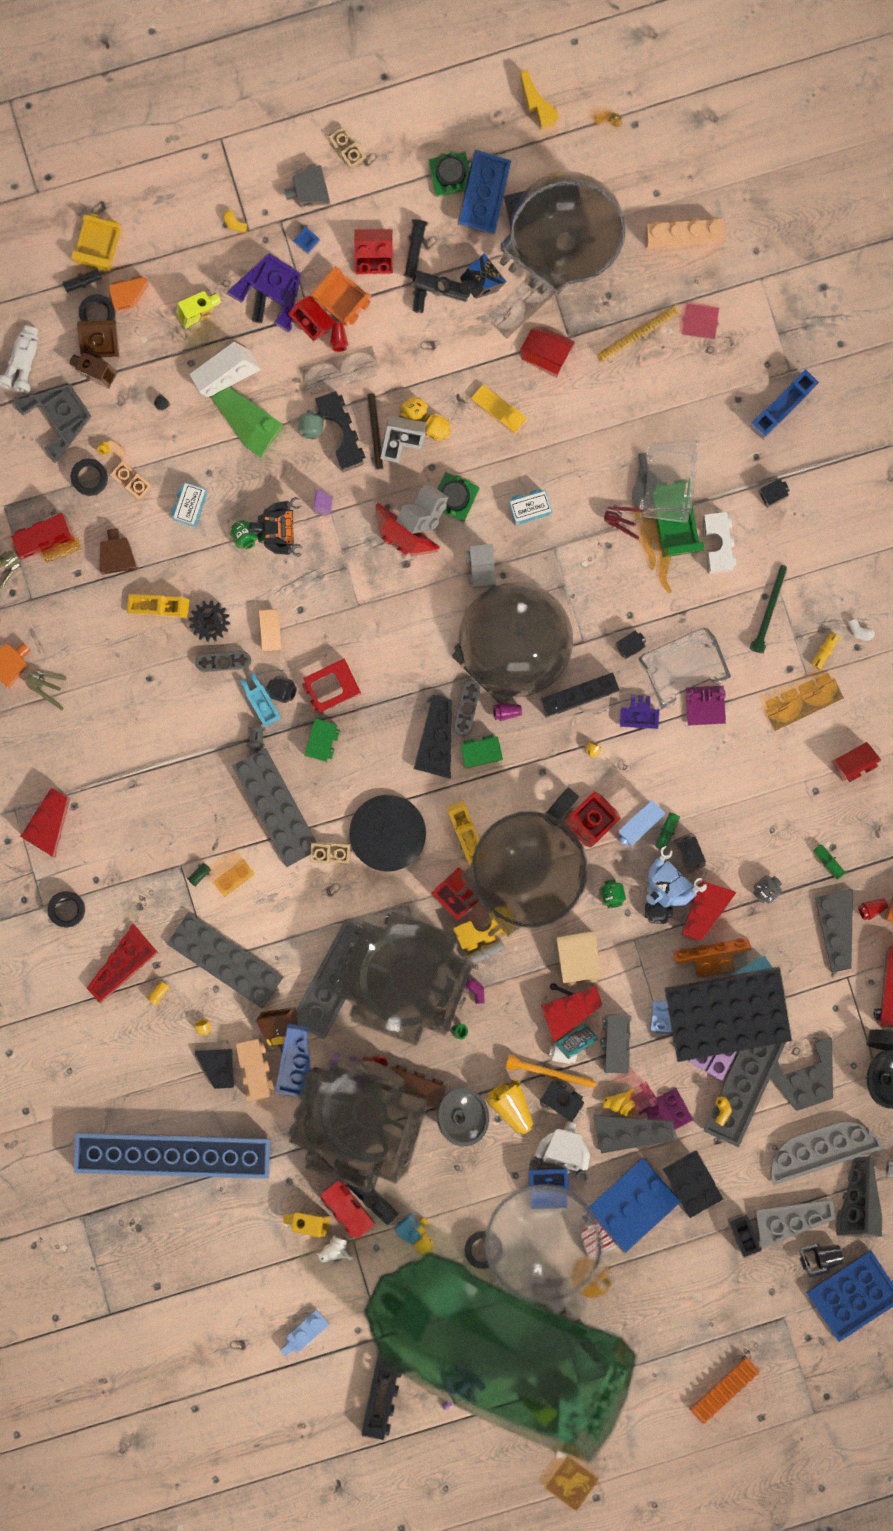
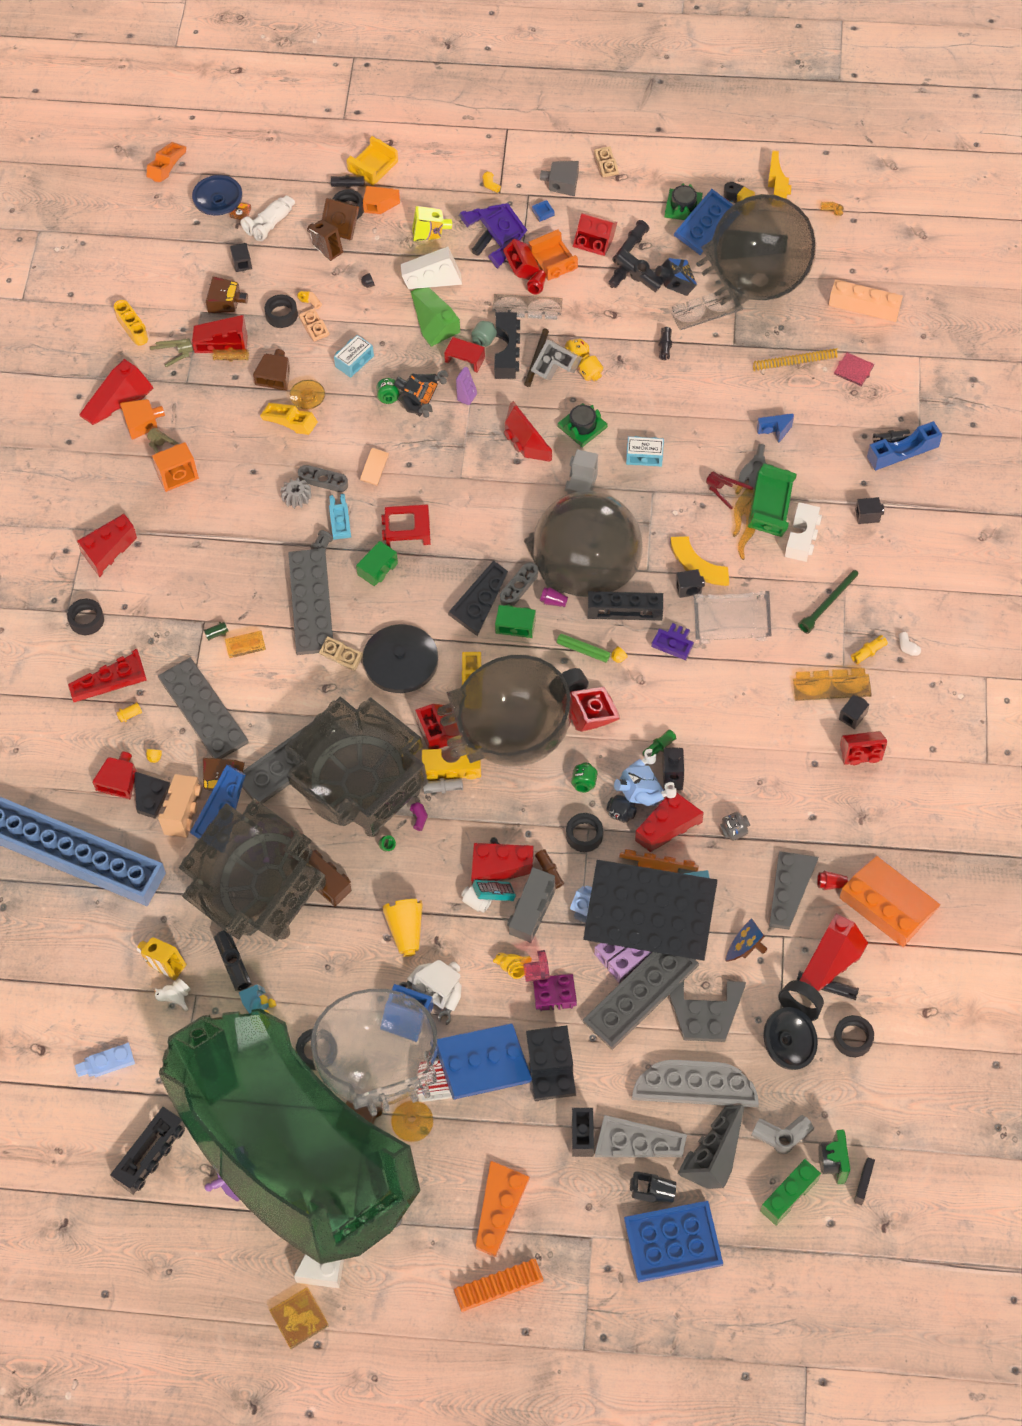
camera: 25 degrees right, 25 degrees down
(15, 425) = (241, 257): none -> black brick
(22, 481) = (224, 296): none -> reddish brown torso
(63, 410) = (285, 261): dark grey wing -> none
(73, 712) = (175, 466): none -> orange brick
(157, 563) = (304, 389): none -> clear yellow dish
(180, 1063) = (116, 776): none -> red torso
(202, 617) = (326, 443): black gear -> none
(211, 686) = (296, 493): none -> light grey gear
(282, 689) = (362, 513): black head -> none
(302, 458) = (465, 351): none -> red panel
(347, 1209) = (204, 956): red wedge -> none
(424, 512) = (551, 418): light grey brick -> none
(471, 1114) = (362, 912): dark grey dish -> none
(499, 409) = (650, 374): yellow slope -> none
(500, 365) = (665, 343): none -> black pin
(505, 140) = (735, 192): none -> black leg
(514, 1063) = (424, 890): light orange piece -> none
(546, 350) = (711, 347): red slope -> none
(551, 1095) = (461, 950): black brick -> none
(556, 754) = (583, 648): none -> bright green axle
(578, 958) = (528, 815): tan slope -> none
(616, 997) = (549, 867): none -> reddish brown pin
(619, 951) = (582, 846): none -> black tyre
(623, 1133) = (509, 992): dark grey wing -> none
(626, 618) = (691, 561): none -> yellow tile
(640, 824) = (635, 724): light blue window -> none
(652, 423) = (780, 424): none -> blue slope
(670, 480) = (777, 465): clear windscreen -> none
(697, 1320) = (500, 1203): none -> orange wing
(705, 705) = (738, 656): magenta hinge -> none
(724, 1108) = (612, 1003): yellow arm -> none
(766, 394) = (891, 436): none -> black pin
(818, 1001) = (746, 941): none -> blue shield
(829, 861) = (804, 826): green axle -> none
(835, 724) = (854, 711): none -> black brick

